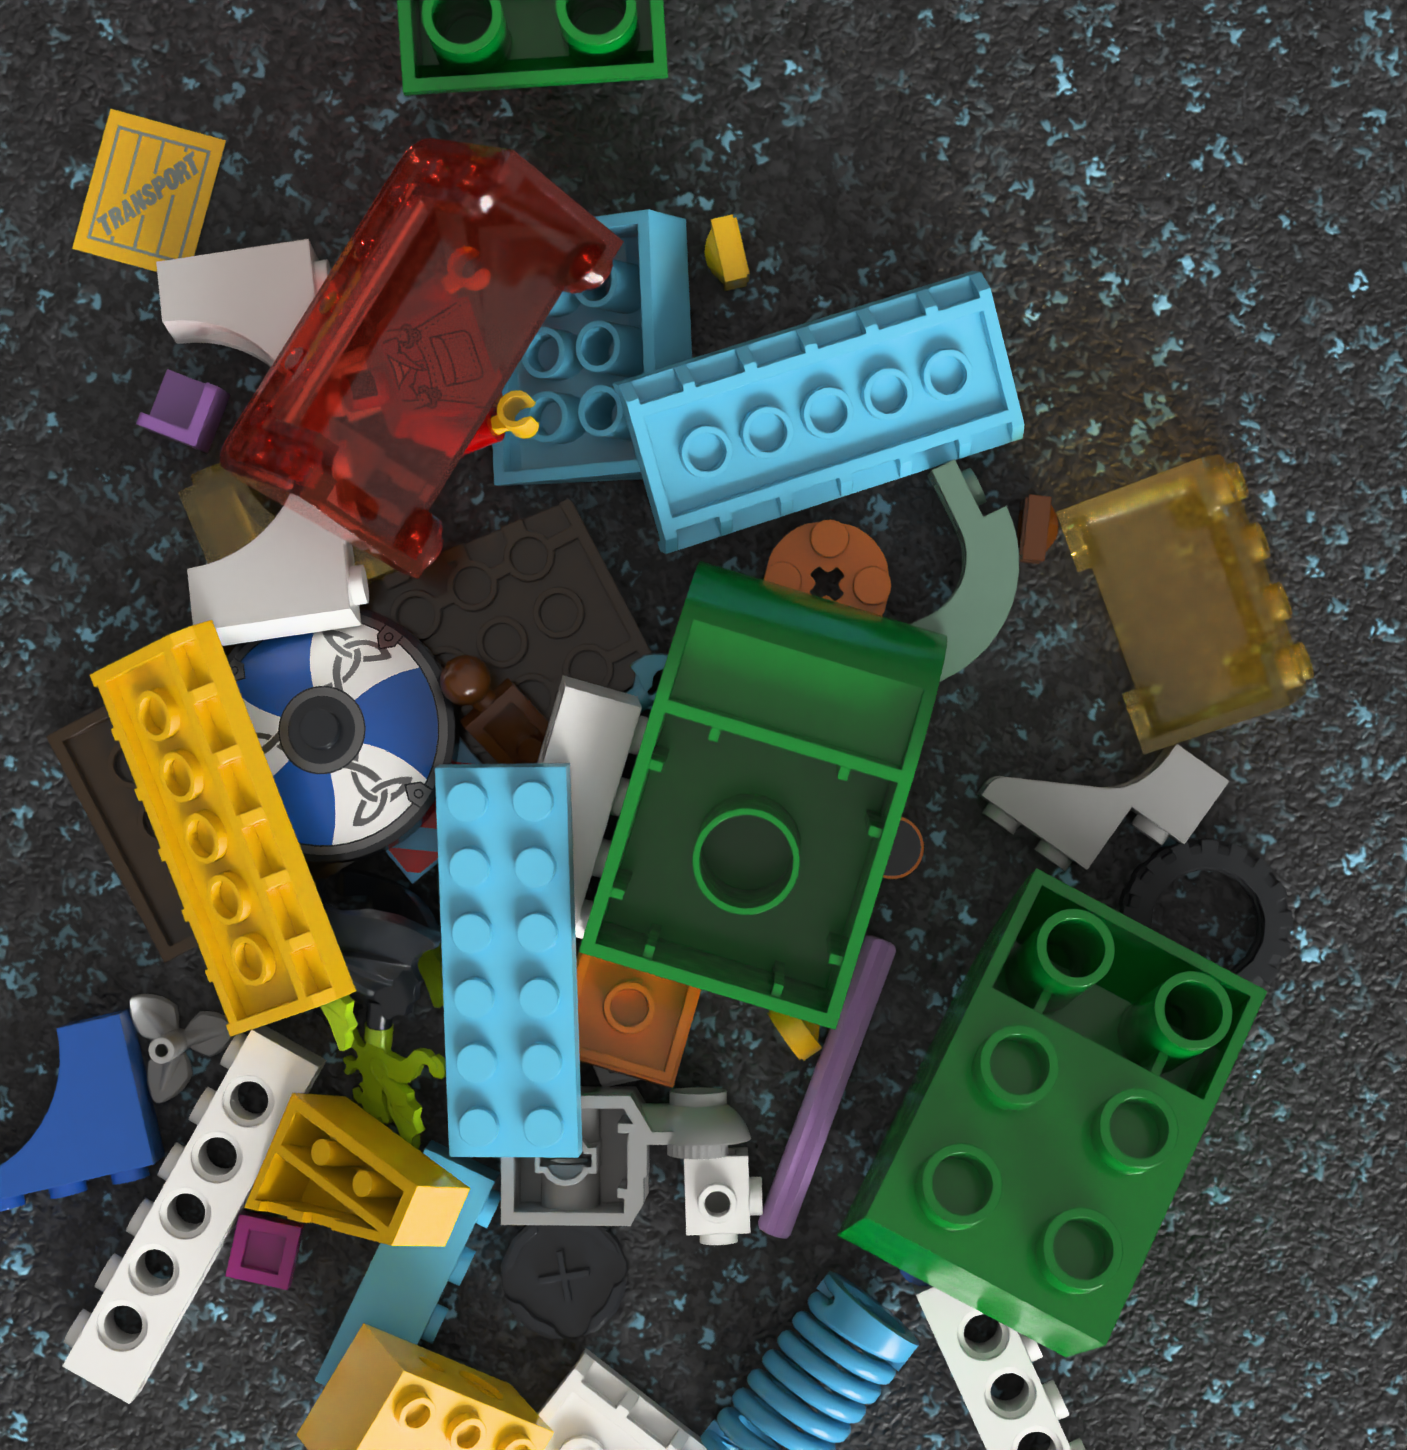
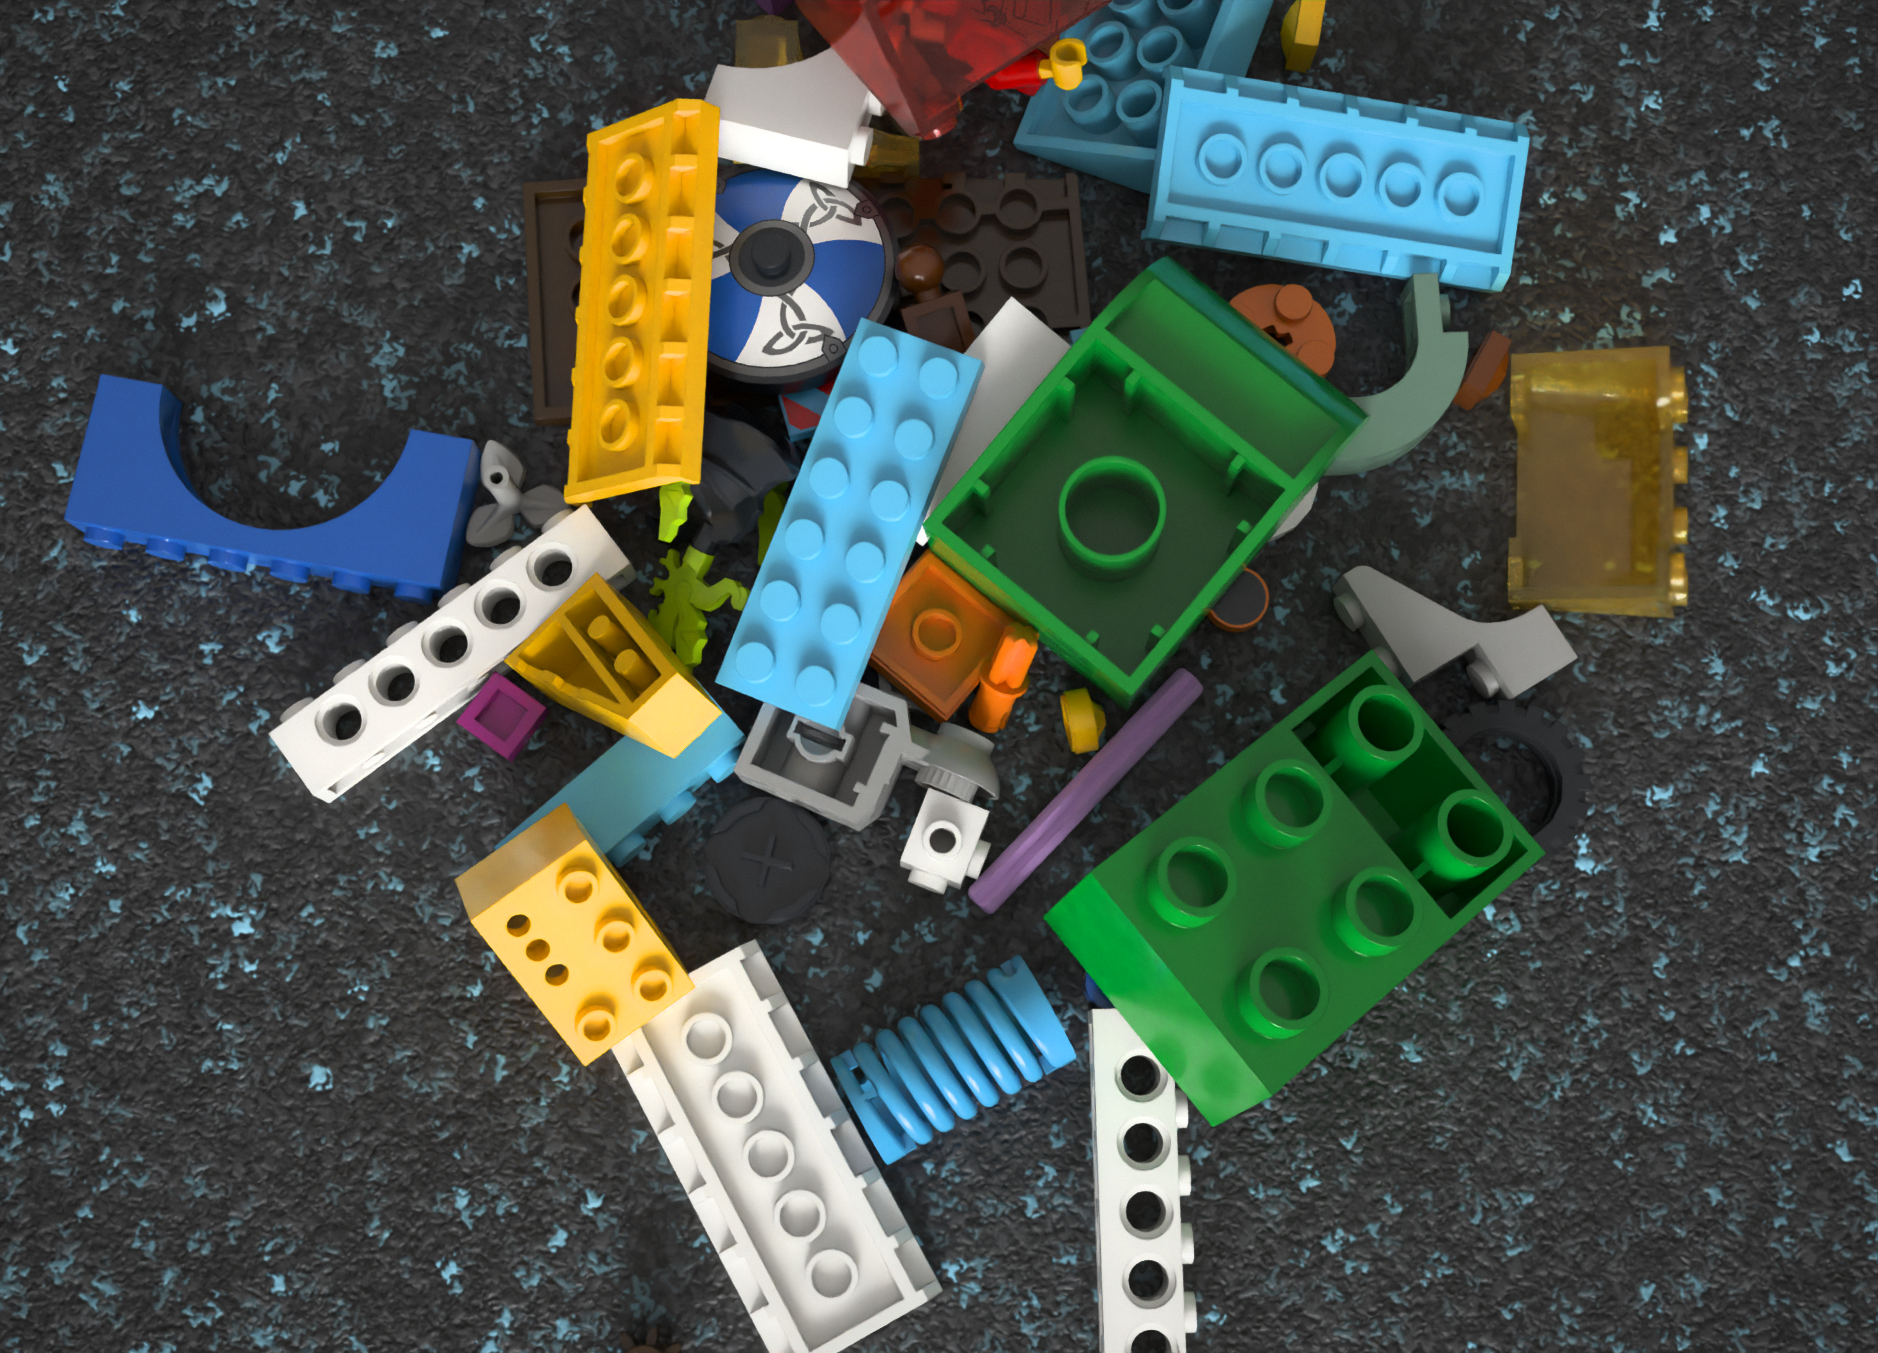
camera: 20 degrees right, 10 degrees down
(708, 1030) = (1003, 678): none -> orange axle

